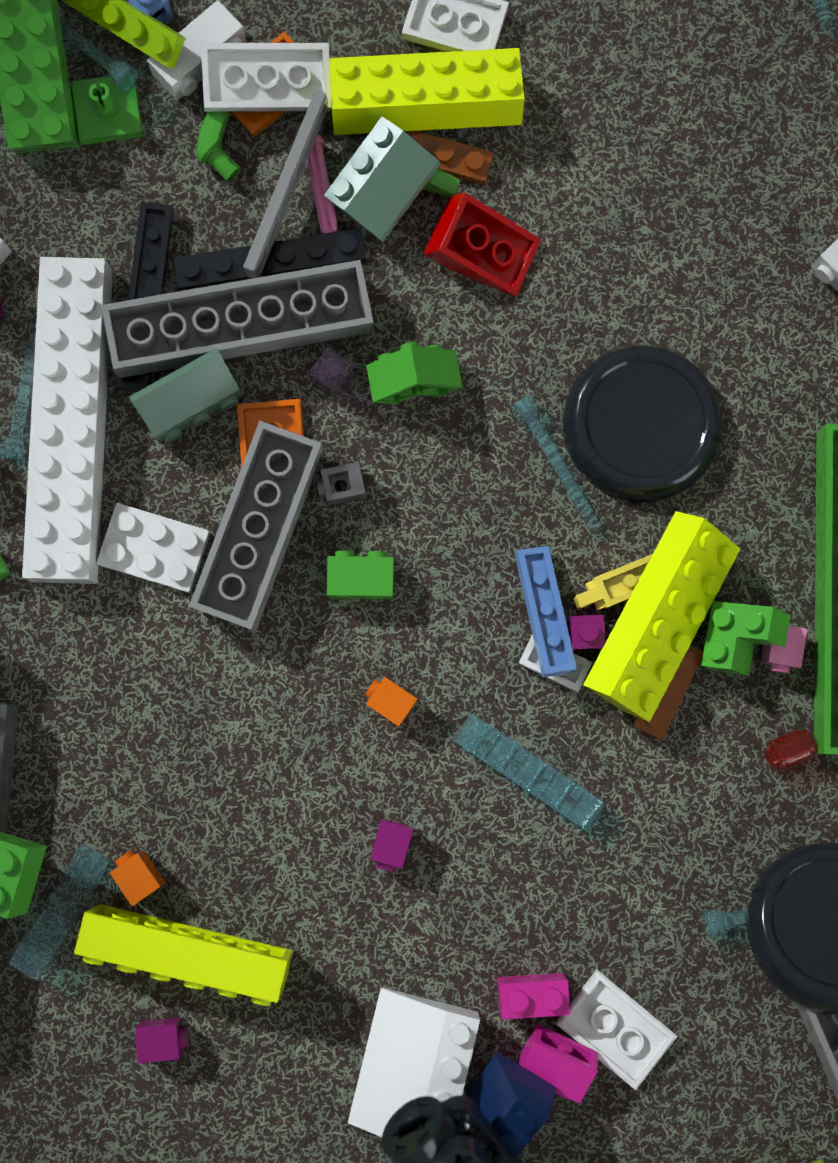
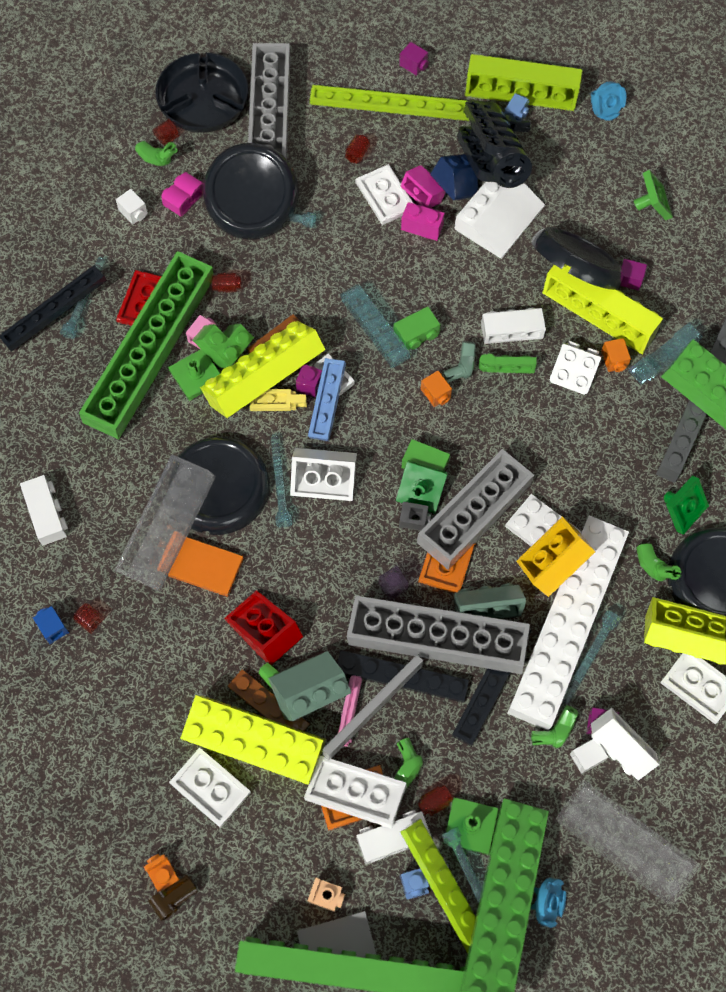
camera: 155 degrees left, 15 degrees down
(27, 273) = (560, 732): none -> bright green arm
(112, 489) = (555, 556): none -> yellow brick
(162, 115) = (435, 800): none -> clear red brick
(192, 833) = (575, 367): none -> white bracket
(247, 1012) = (584, 257): none -> black piece
(301, 792) = (507, 364): none -> bright green hinge
(315, 864) = (513, 325): none -> white brick
(349, 531) = (421, 485): none -> tile
(362, 763) = (465, 365): none -> sand green arm
(391, 845) = (466, 319): magenta brick -> none
(413, 372) = (344, 559): bright green brick -> none
(461, 793) = (417, 328): none -> bright green brick
(500, 497) = (323, 474): none -> white slope
(601, 299) = (206, 566): none -> orange tile
(683, 317) = (165, 522): none -> clear brick
(700, 1097) = (357, 148): none -> clear red brick
(720, 167) = (88, 617): none -> clear red brick
(760, 576) = (193, 373): none -> bright green tile
(765, 133) = (50, 624): none -> blue brick

